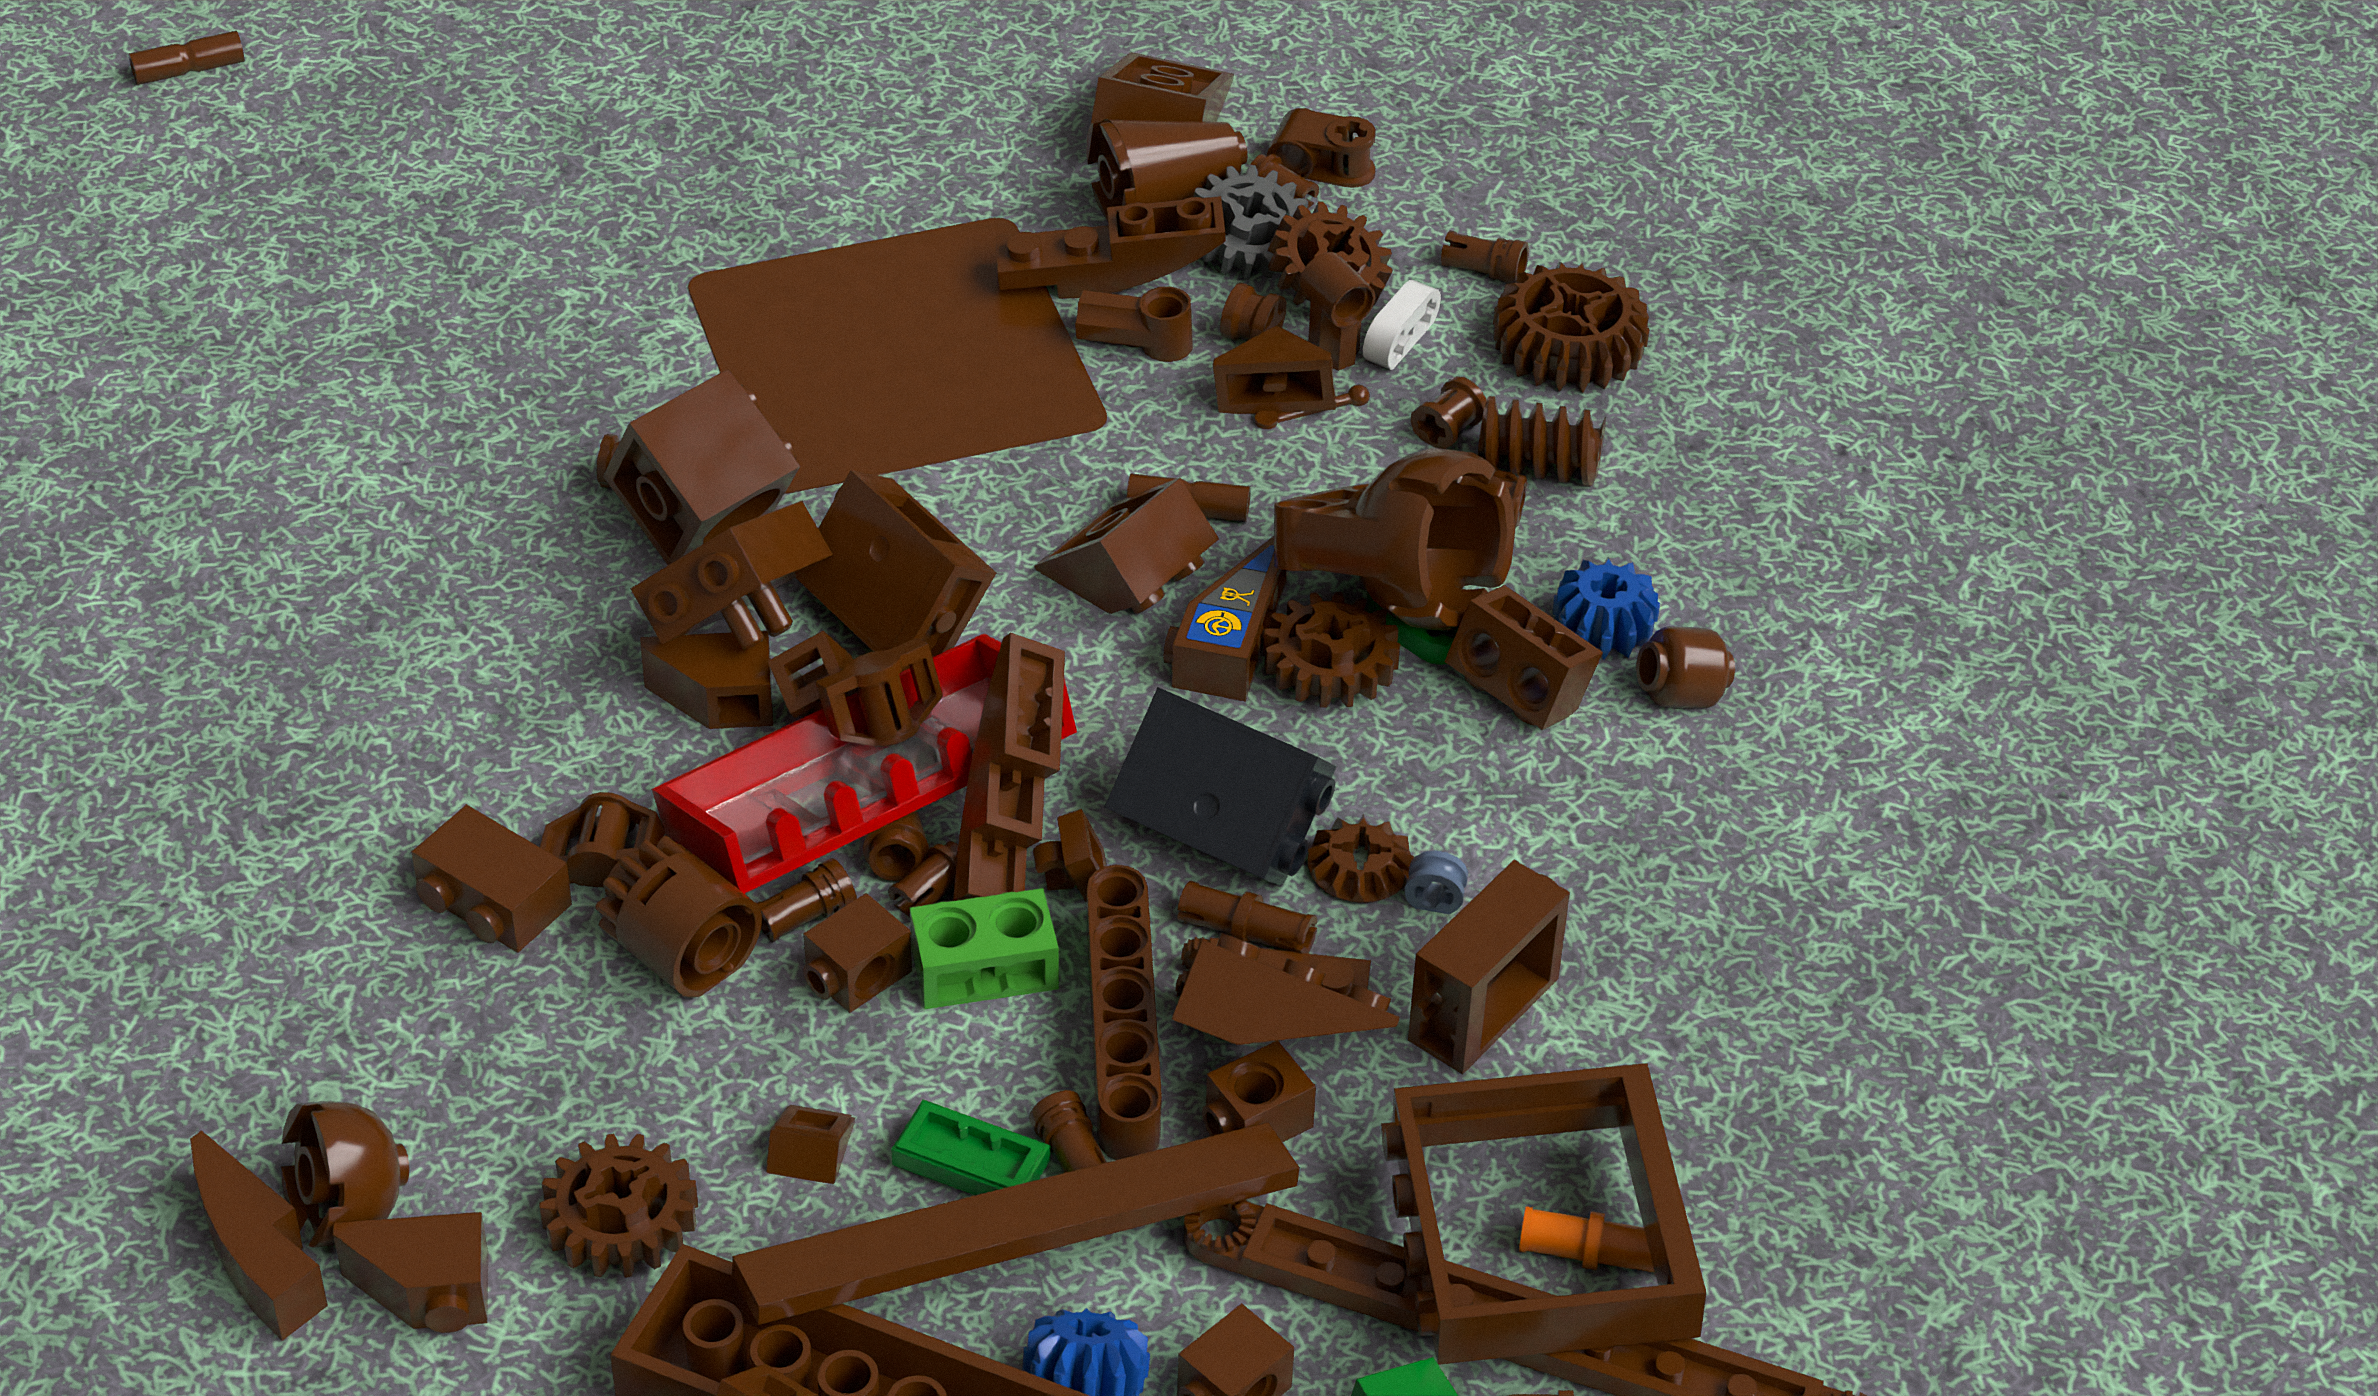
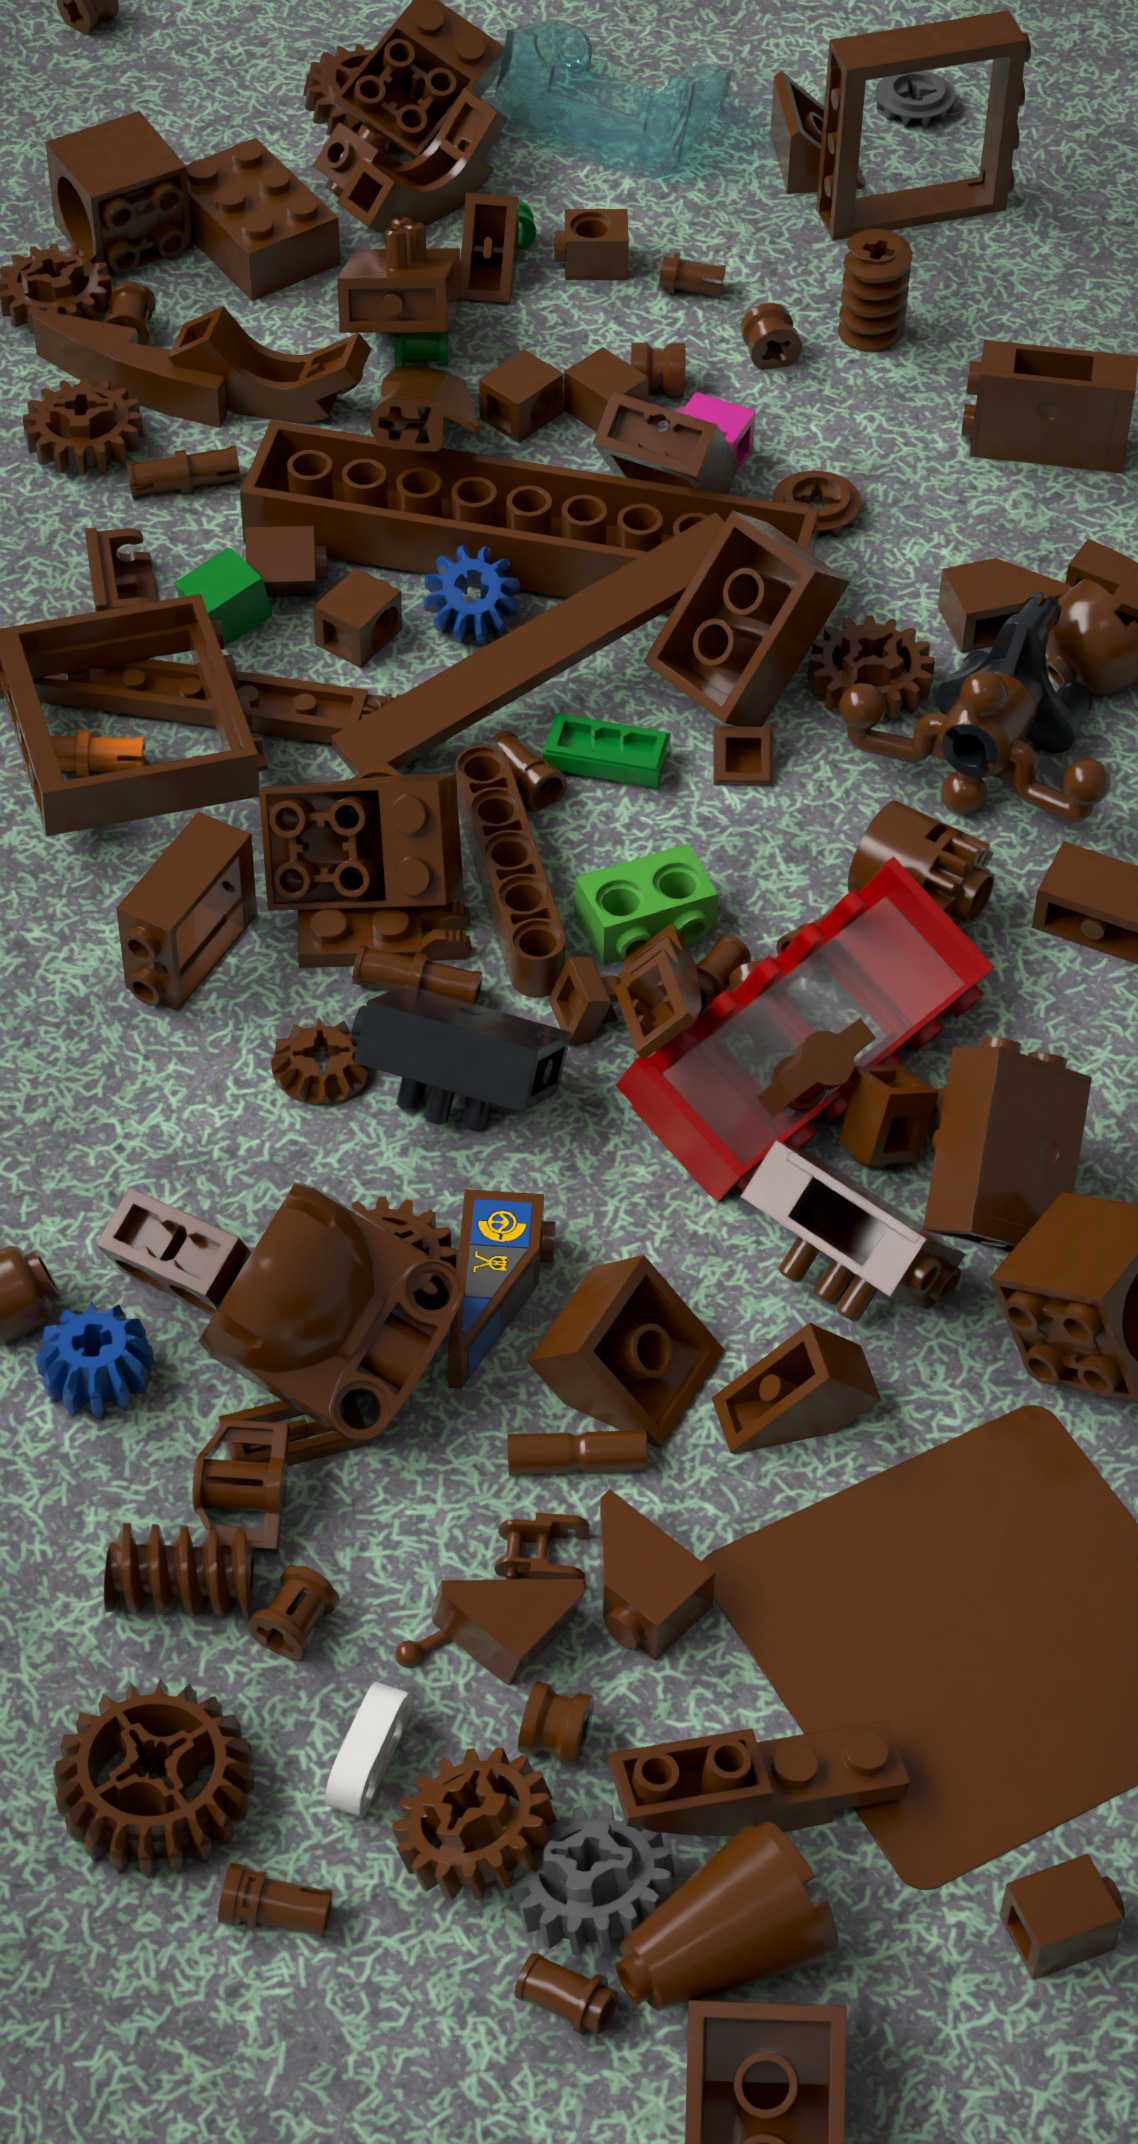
camera: 170 degrees right, 5 degrees up
(517, 1056) = (985, 718): none -> wheel
(600, 837) = (1025, 945): reddish brown piece -> none
(753, 1174) = (746, 621): none -> reddish brown brick
(856, 953) = (757, 884): reddish brown brick -> none
(912, 165) = (1062, 1915): none -> reddish brown brick
(985, 493) = (797, 1392): none -> reddish brown slope
(1154, 389) = (648, 1580): none -> reddish brown slope
(1155, 322) = (702, 1689): reddish brown piece -> none
(1233, 449) = (541, 1532): none -> reddish brown piece
(1323, 144) = (530, 2066): reddish brown piece -> none
(1337, 306) = (450, 1688): reddish brown piece -> none
(1440, 868) = (246, 1031): sand blue bush -> none

